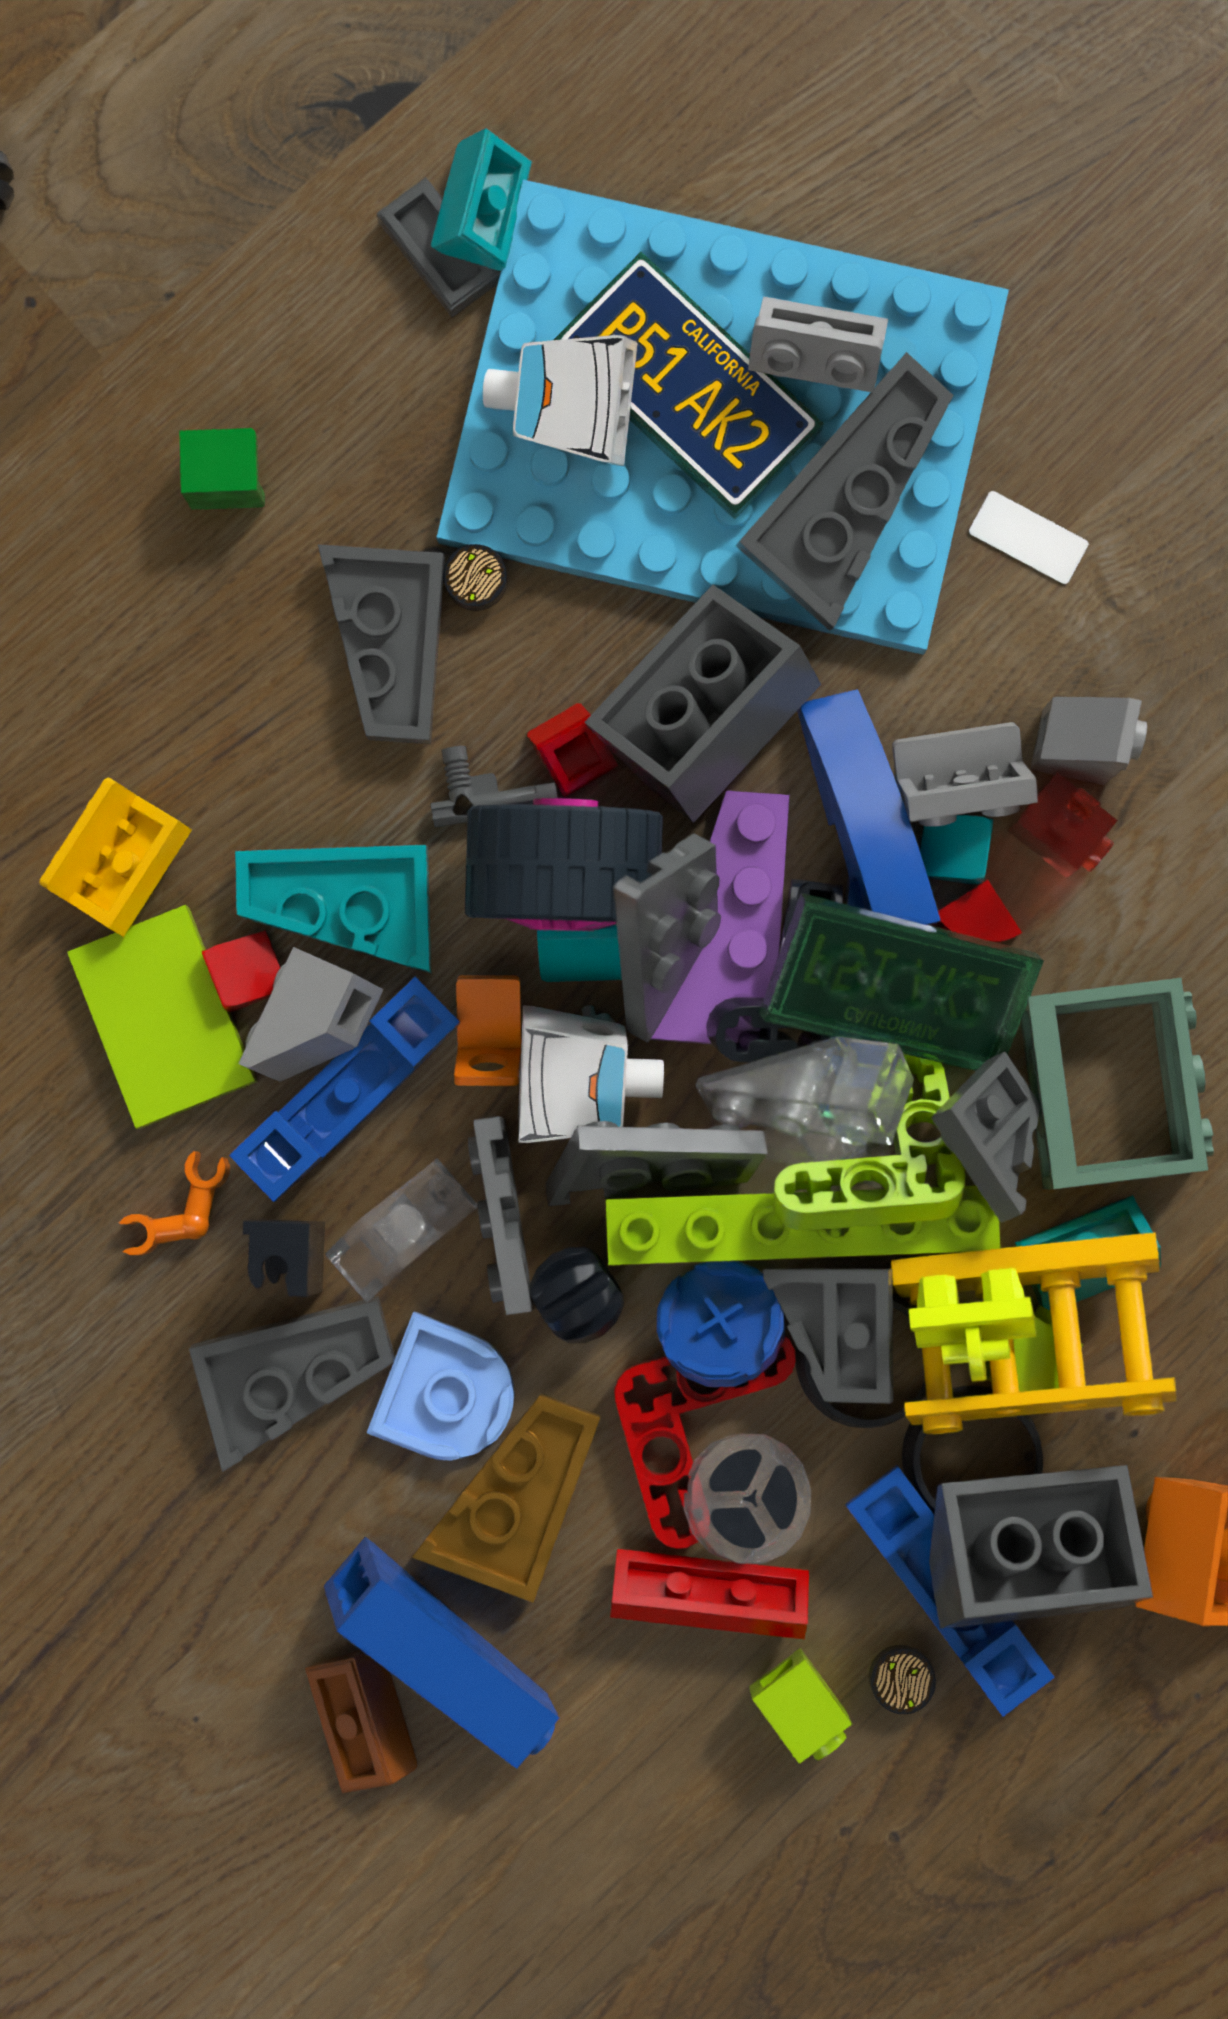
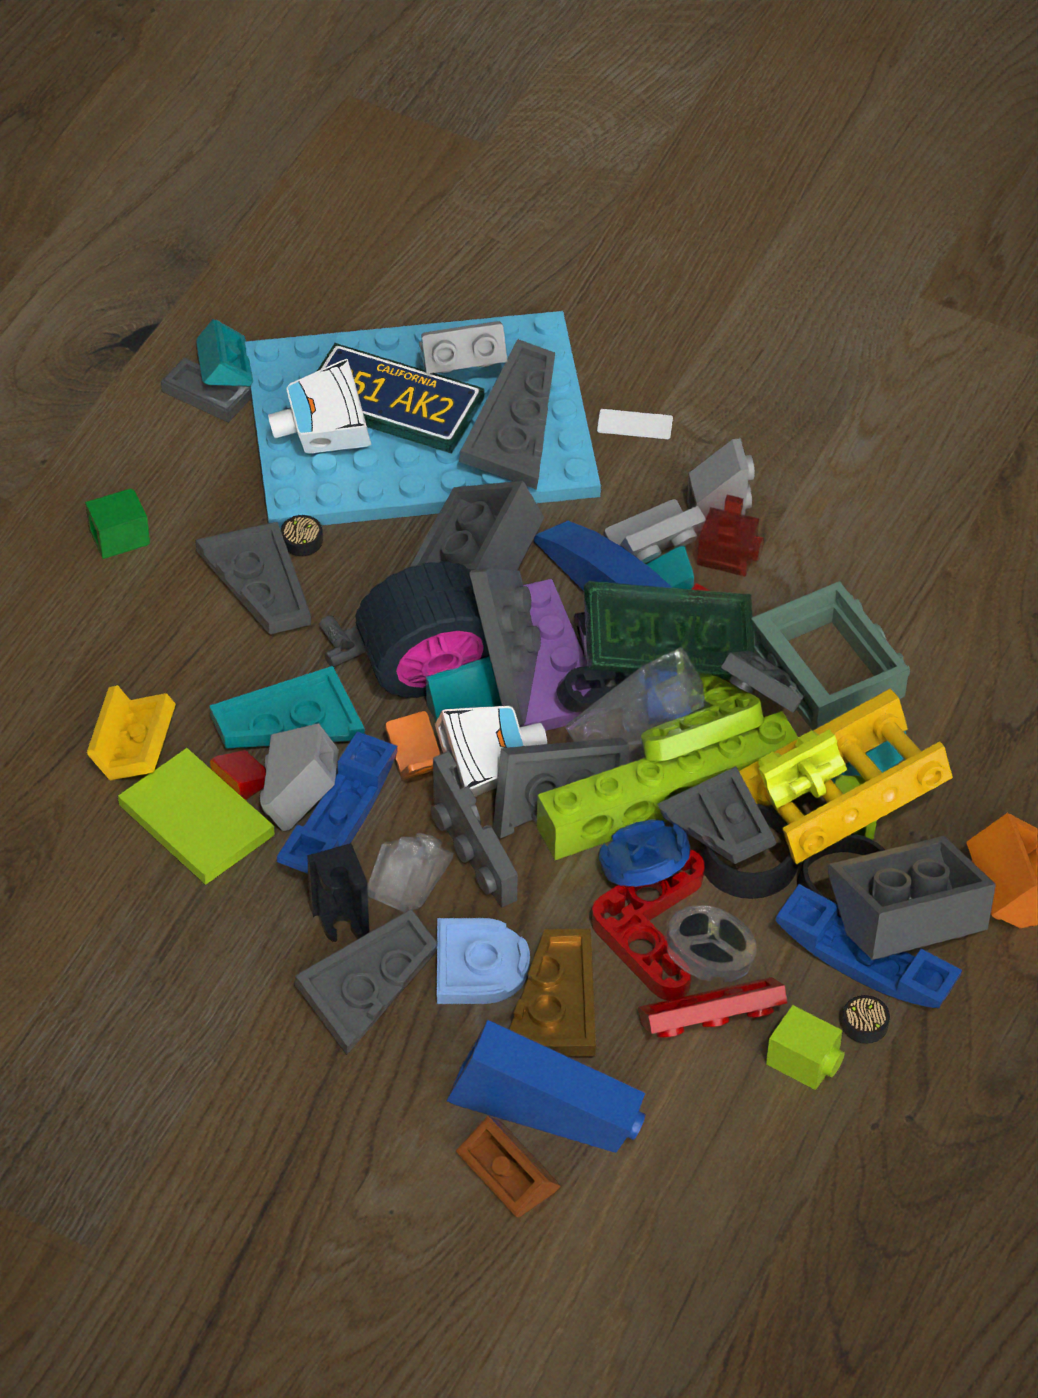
camera: 25 degrees left, 35 degrees down
(194, 1221) = (263, 921): orange arm -> none
(576, 1295) = (543, 866): black piece -> none

